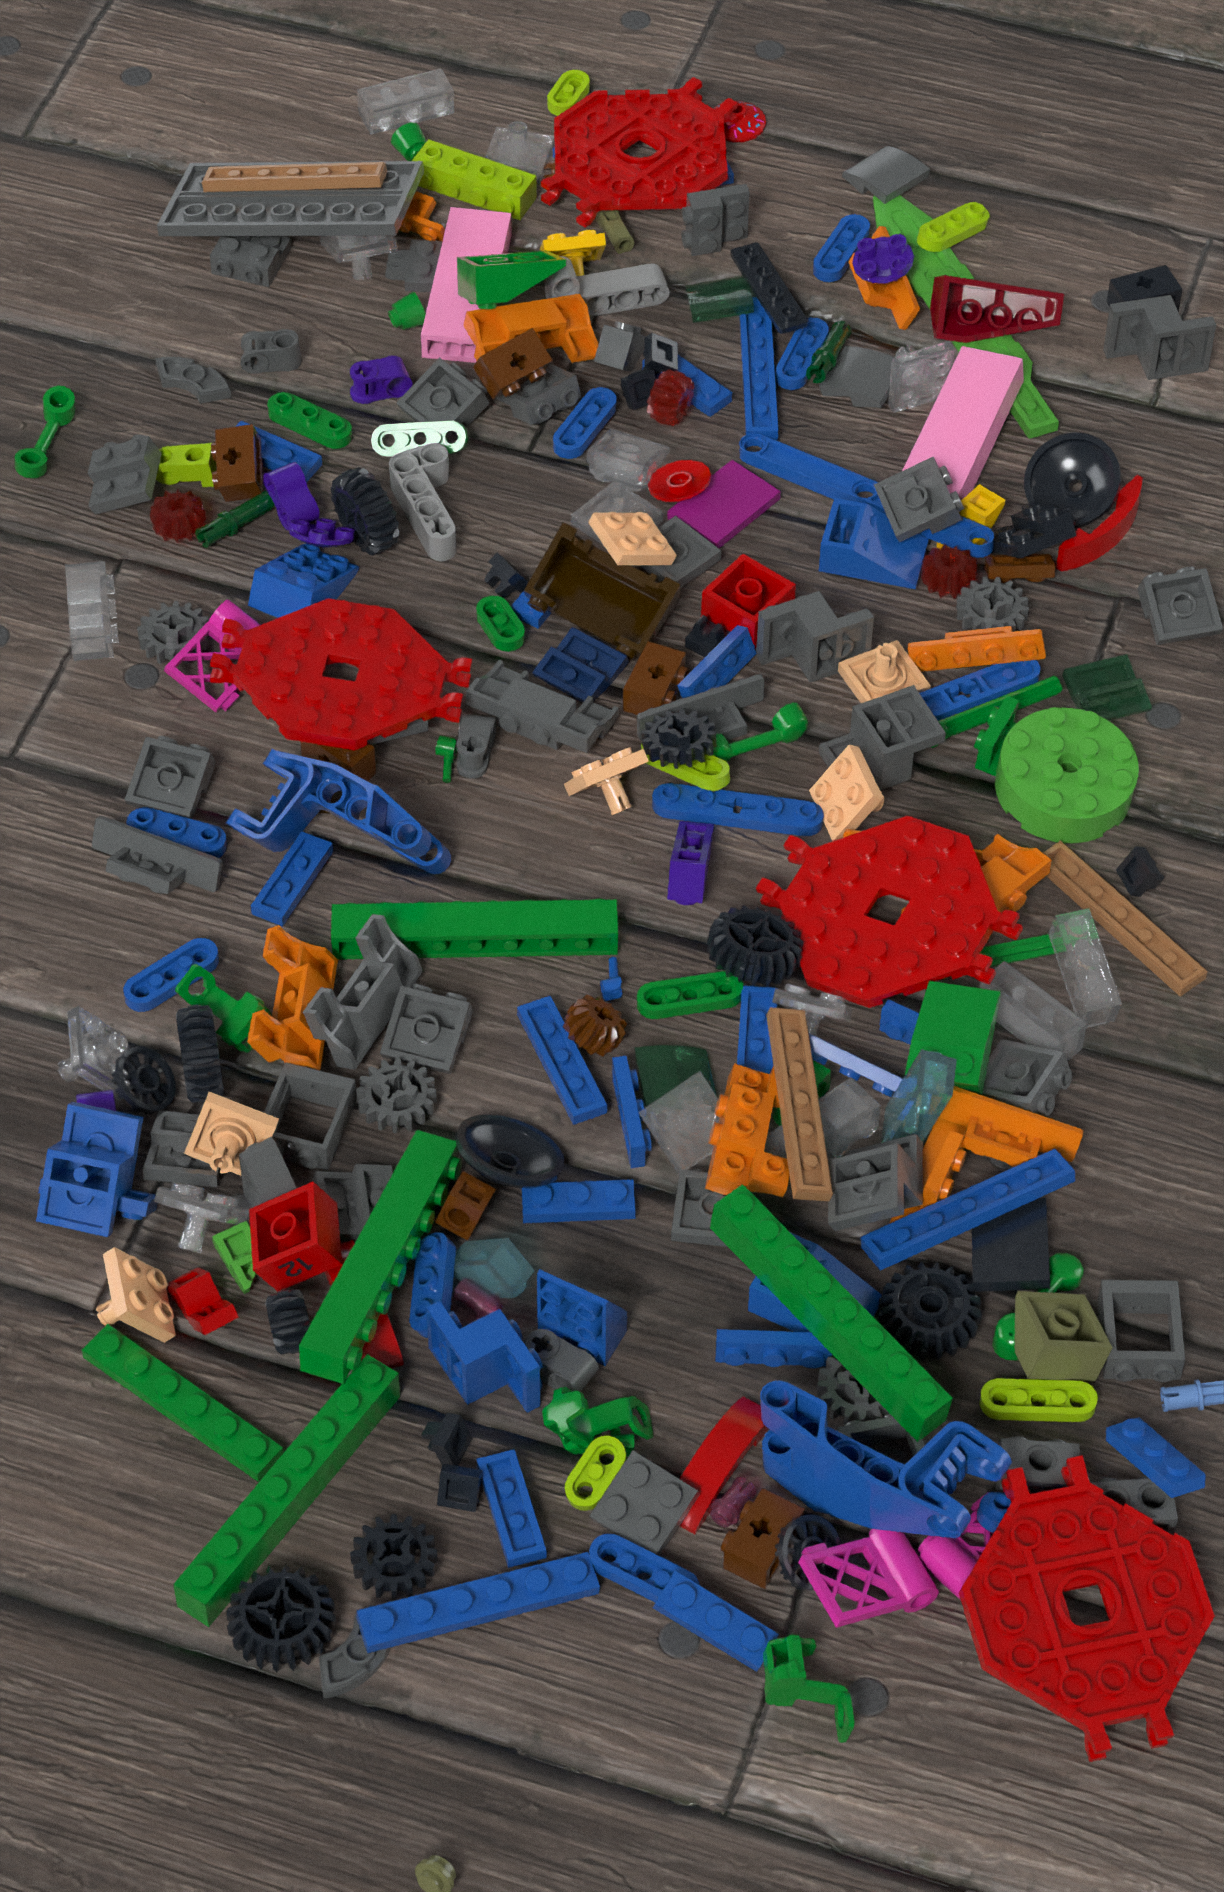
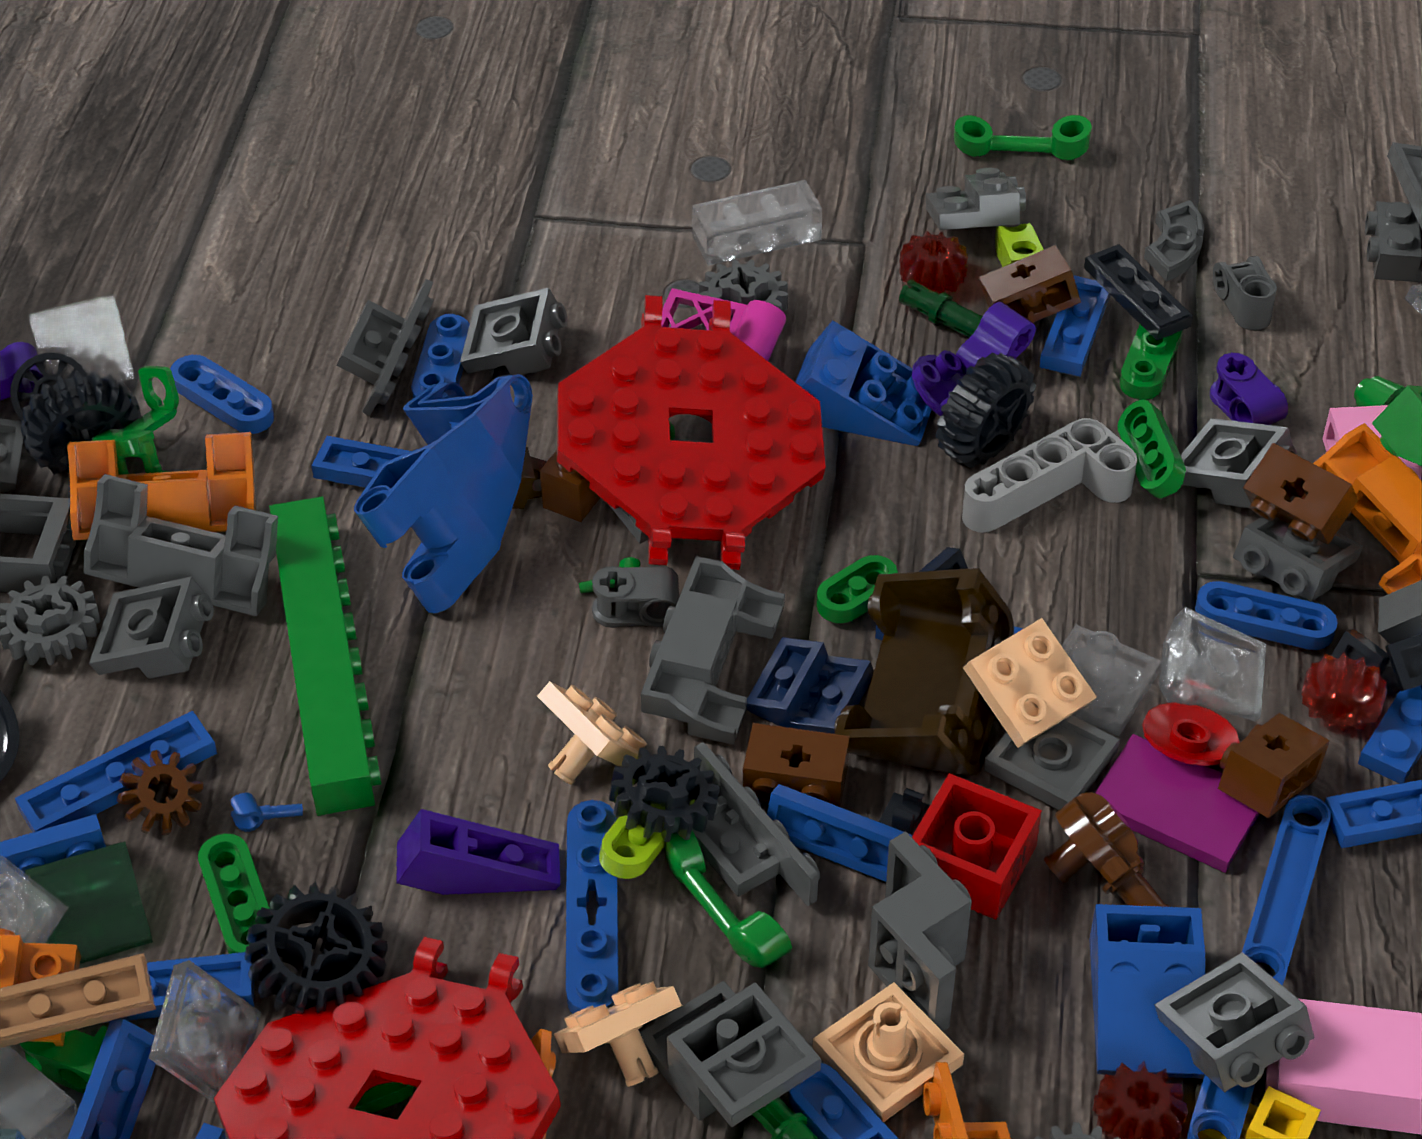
camera: 80 degrees right, 5 degrees down
(260, 405) = (1138, 292): none -> black tile
(719, 445) = (1272, 764): none -> reddish brown brick
(761, 536) = (1106, 840): none -> reddish brown pin

